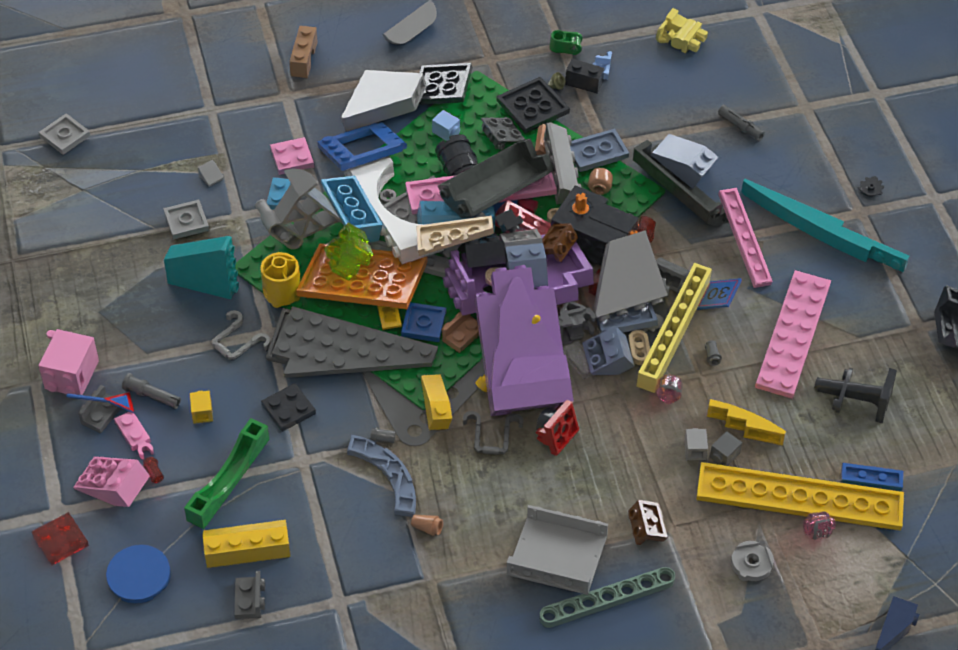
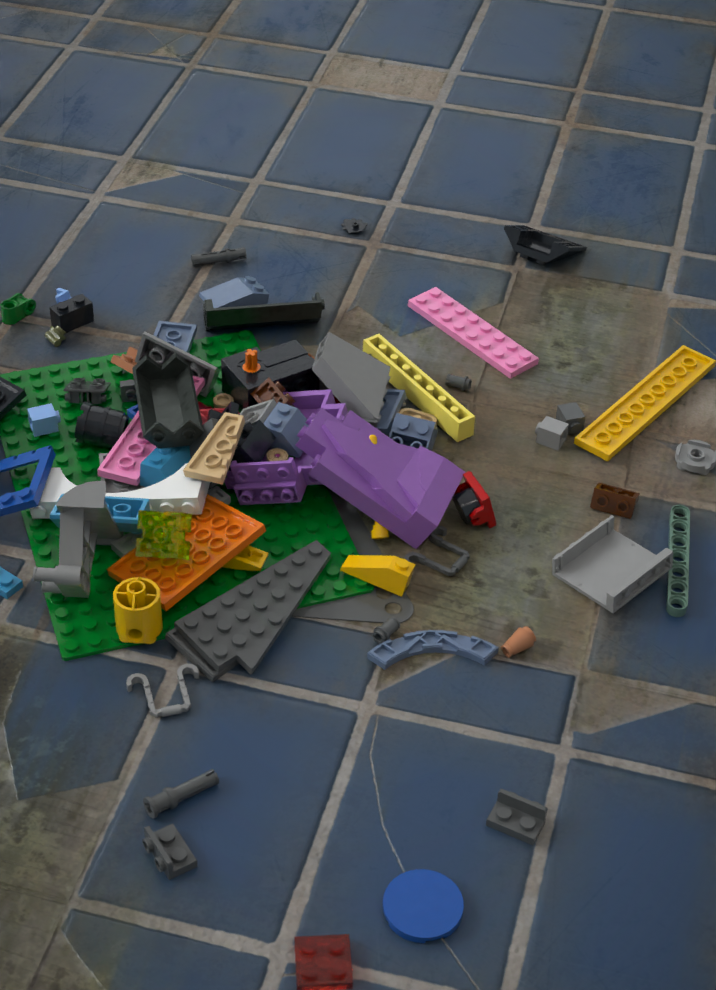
camera: 60 degrees left, 10 degrees down
(68, 362) = (85, 845): bright pink container -> none
(113, 480) = (278, 877): bright pink slope -> none
(123, 400) = (172, 823): blue piece -> none
(134, 433) = (226, 833): bright pink plate -> none
(151, 465) = (290, 834): clear red pin -> none
(201, 407) = (239, 755): yellow brick -> none
(203, 266) = (62, 664): teal slope -> none
(210, 498) = (372, 797): green arch -> none
(246, 543) = (445, 791): yellow slope -> none
(288, 407) = (291, 688): black plate -> none
(423, 322) = (279, 539): blue plate -> none
(460, 332) = (308, 519): nougat bracket -> none
(533, 104) = (74, 356): black plate -> none
(600, 181) = (211, 354): nougat head -> none
(669, 389) = (484, 420): clear pink head -> none
(682, 32) = (83, 239): light yellow hips -> none
(719, 294) = (406, 342): blue piece -> none
(745, 237) = (354, 306): bright pink tile -> none
(753, 425) = (549, 394): yellow slope -> none
(819, 525) = (686, 402): clear pink head -> none
(824, 227) = (372, 265): teal slope -> none
(870, 393) = (583, 309): black piece -> none
(872, 477) = (654, 356): blue plate -> none

